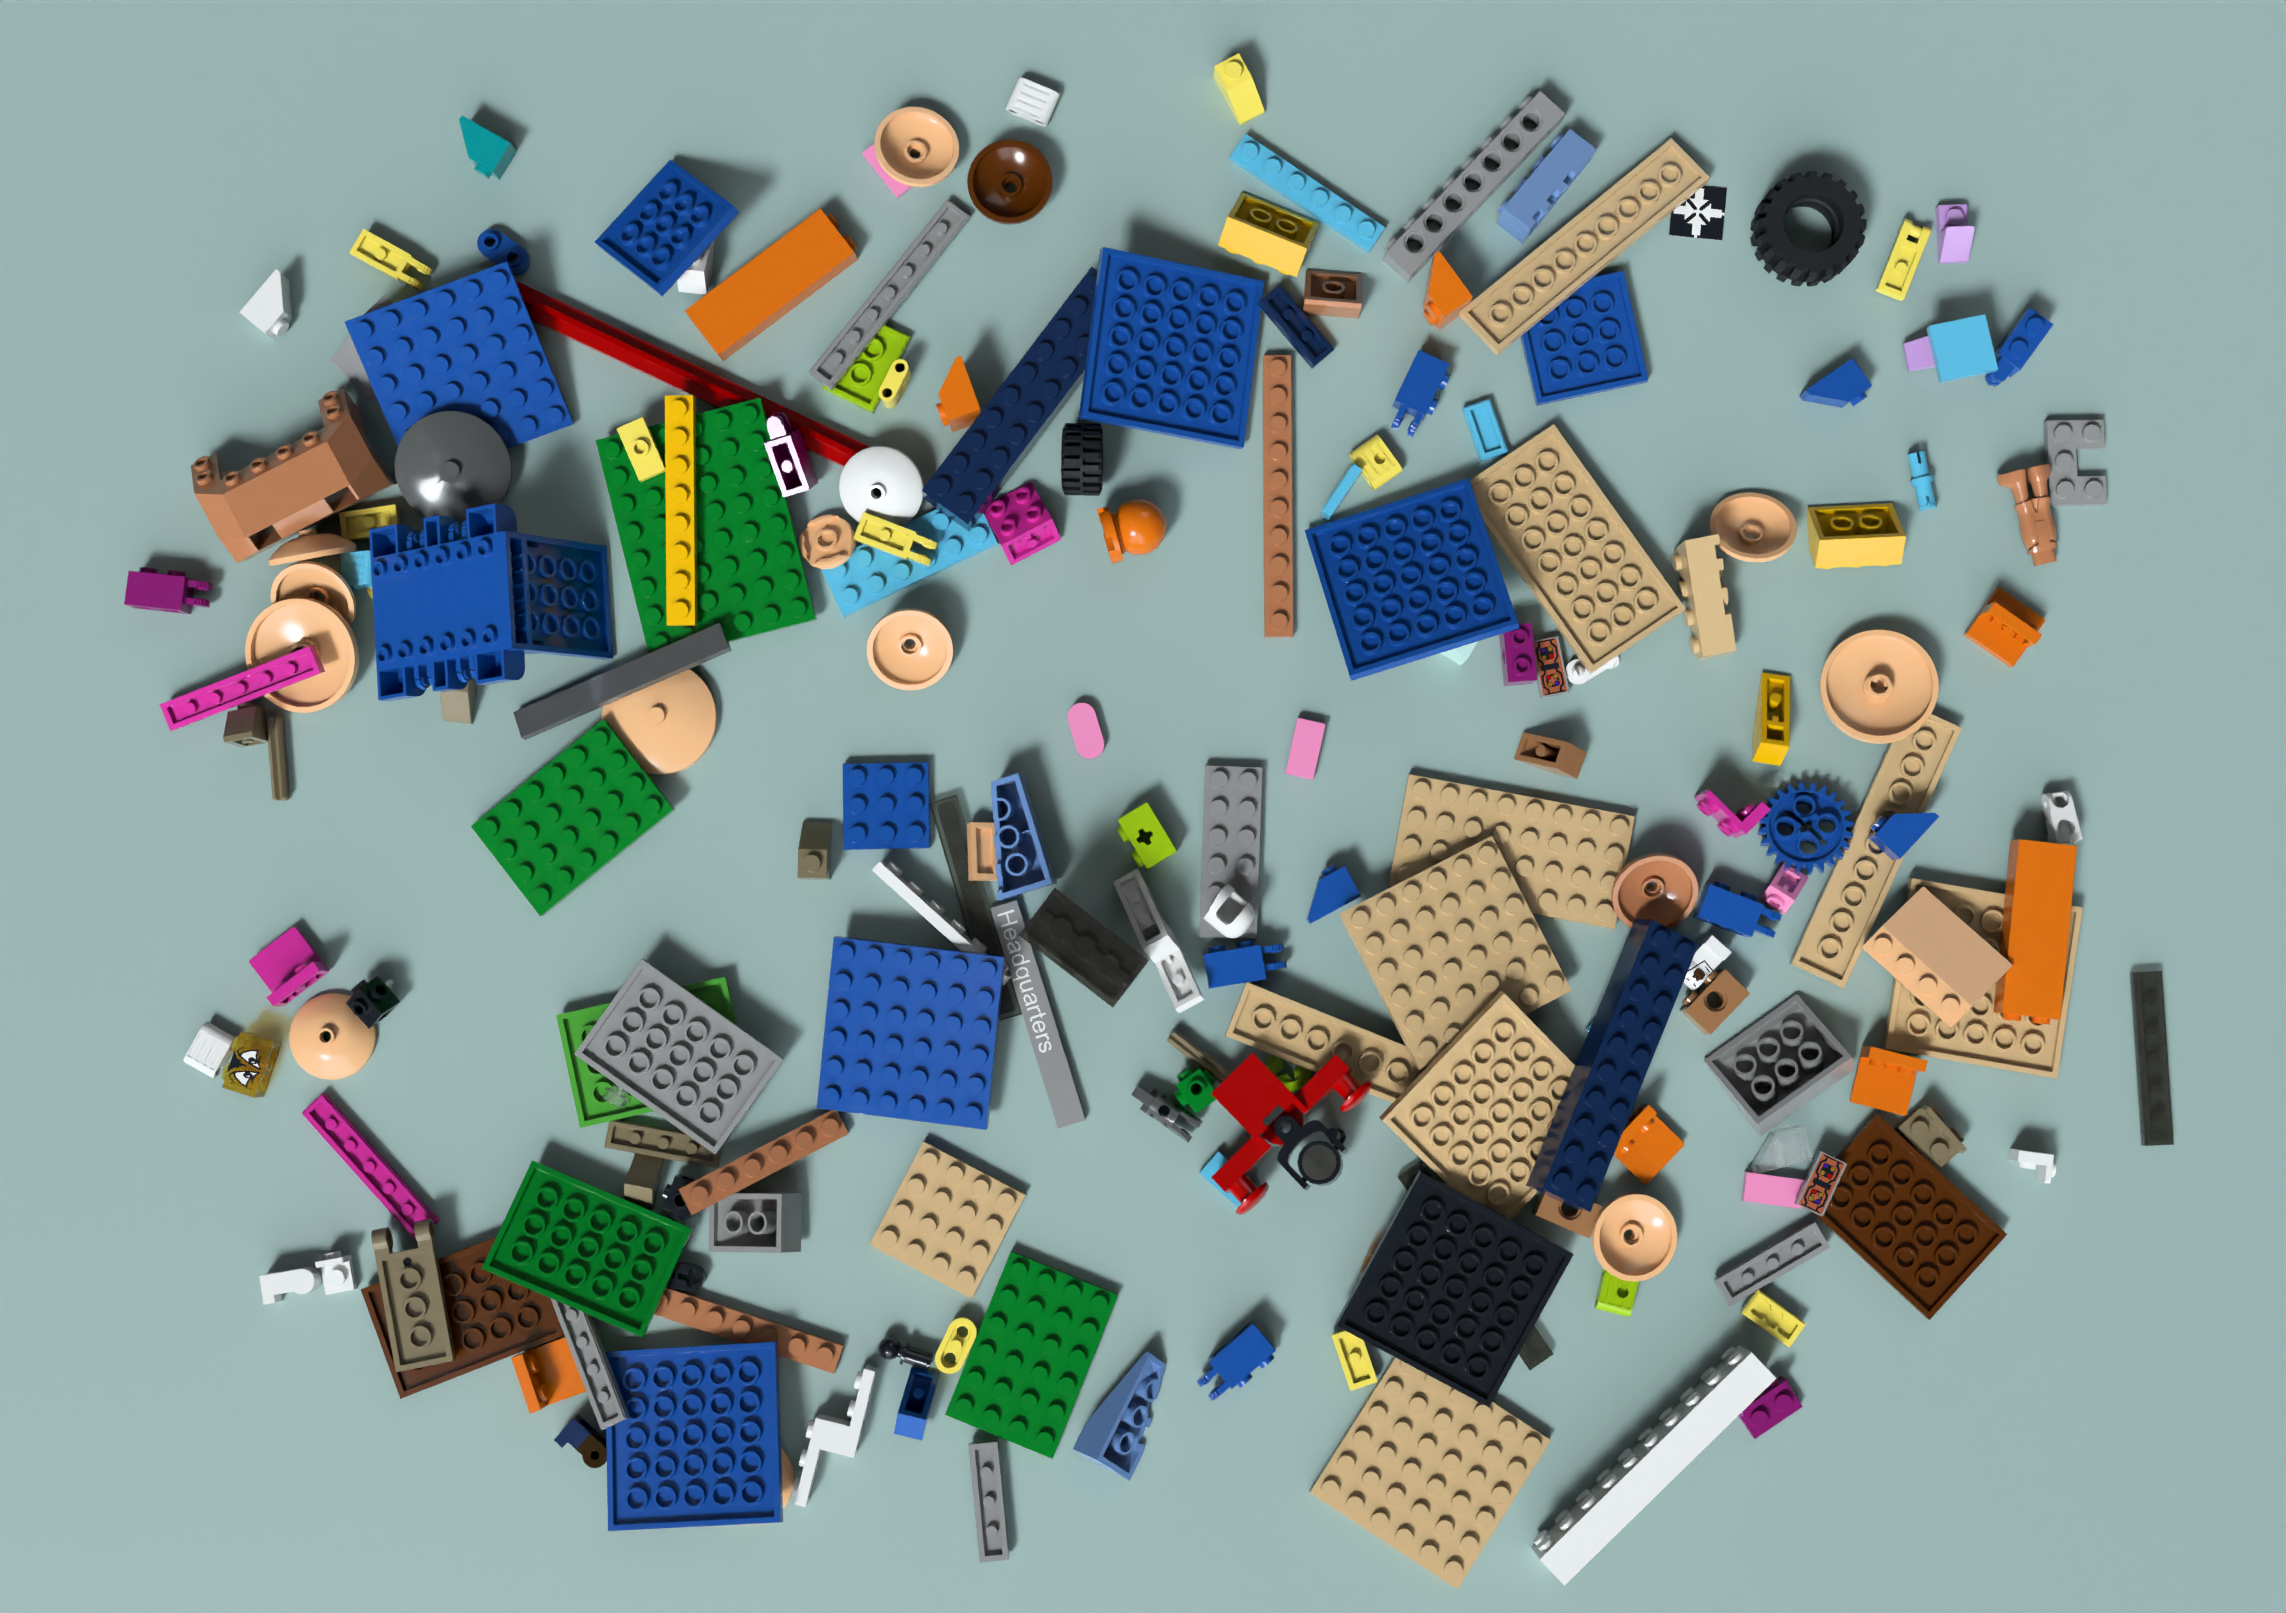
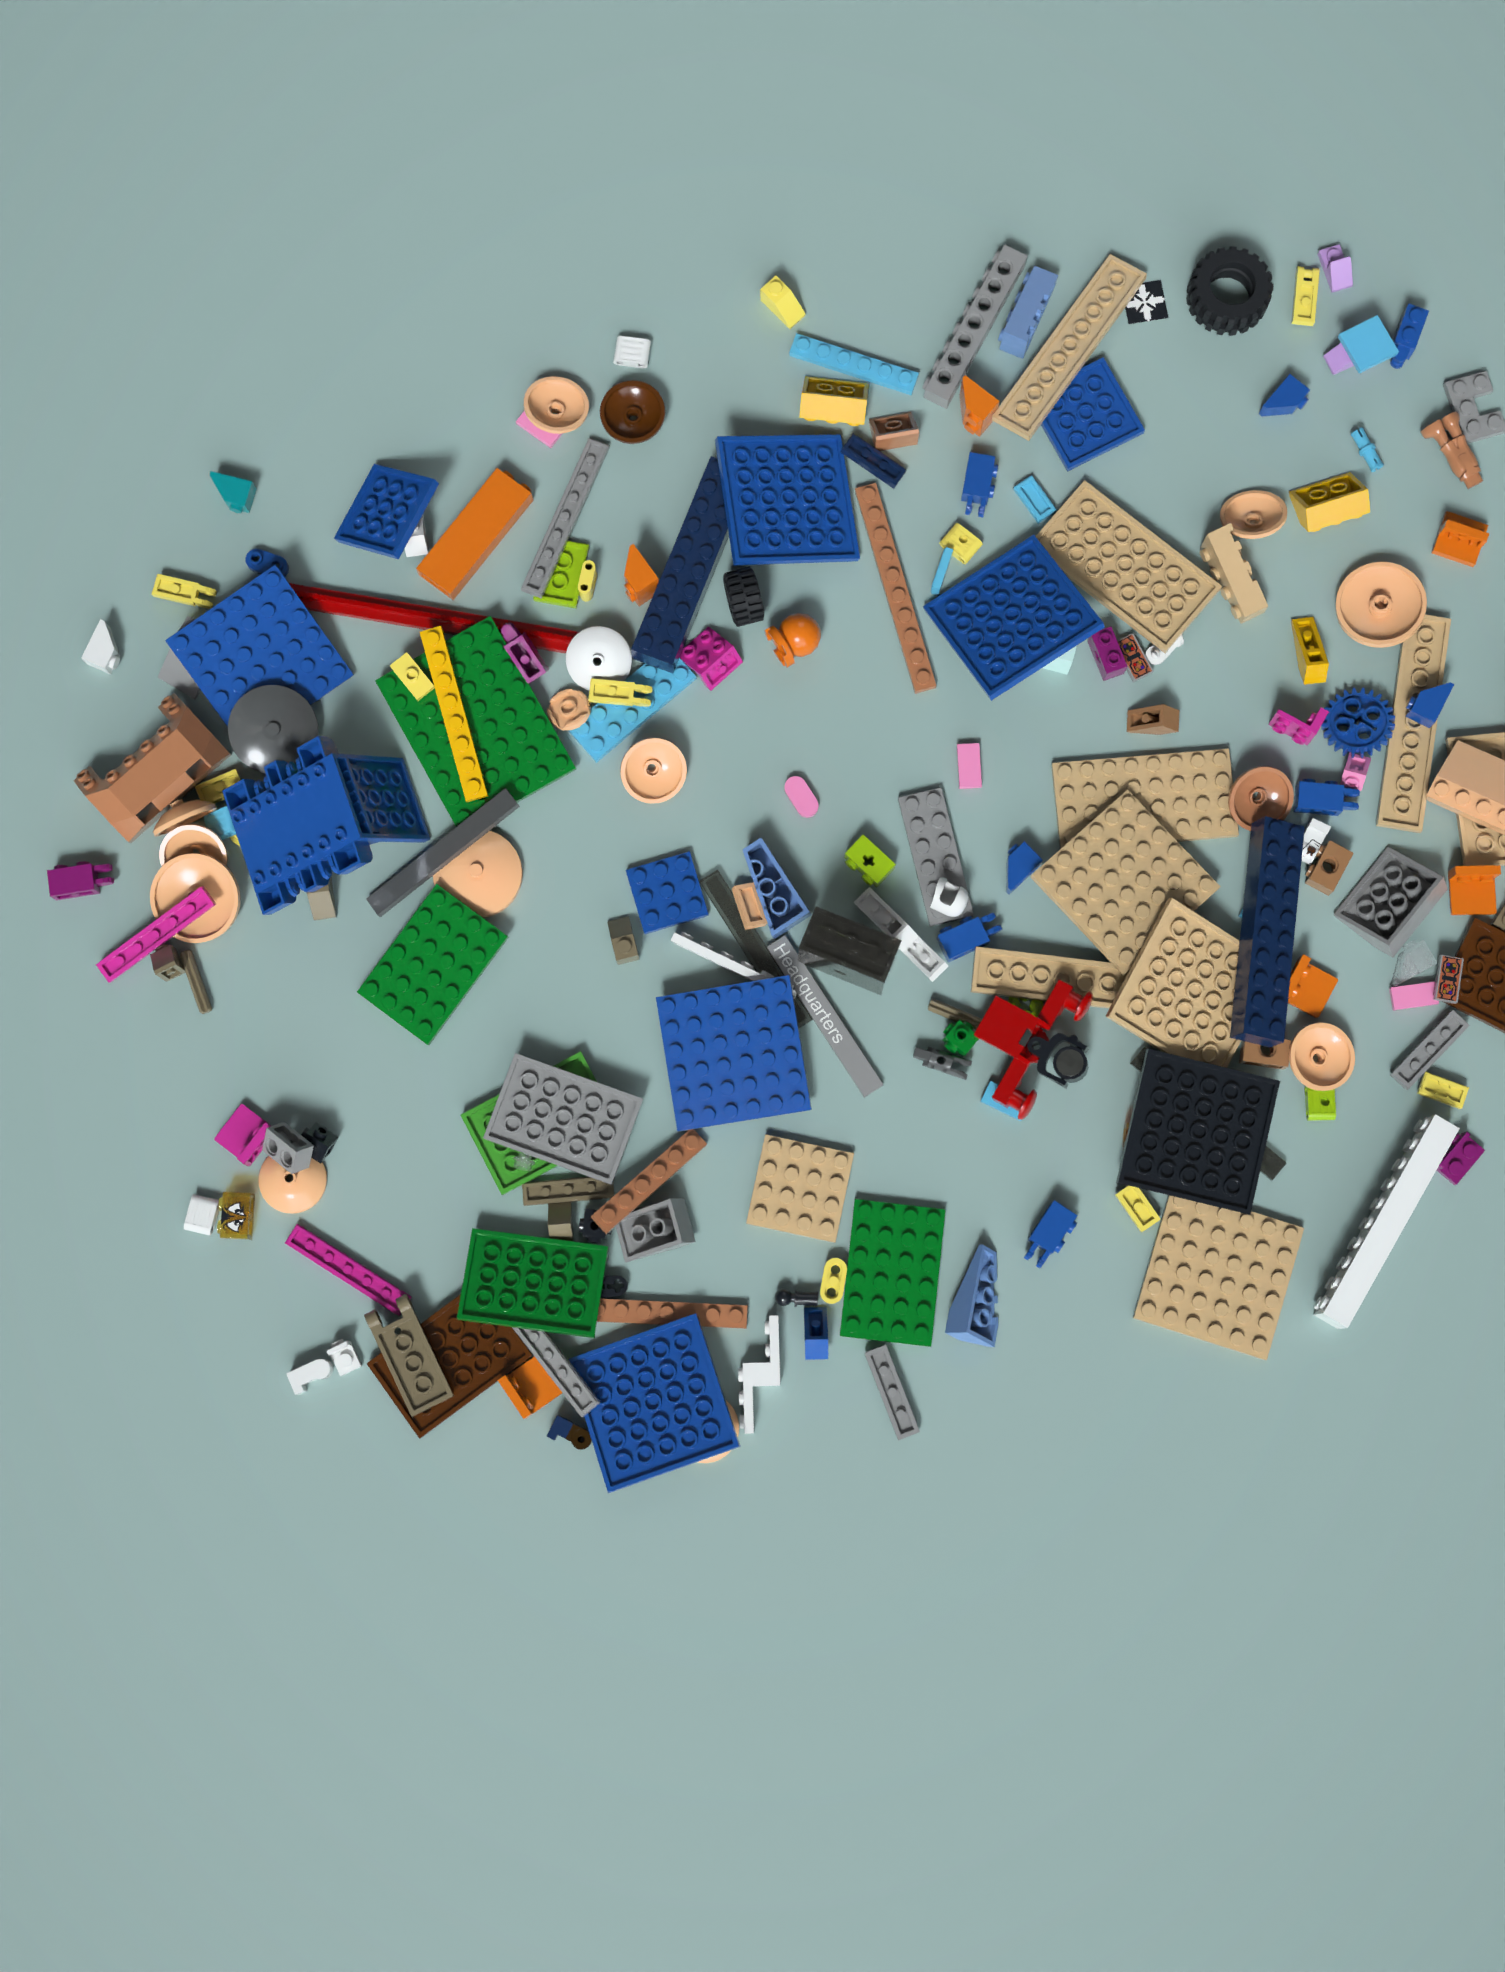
camera: 15 degrees left, 5 degrees down
(332, 1000) = (287, 1147): none -> light grey brick

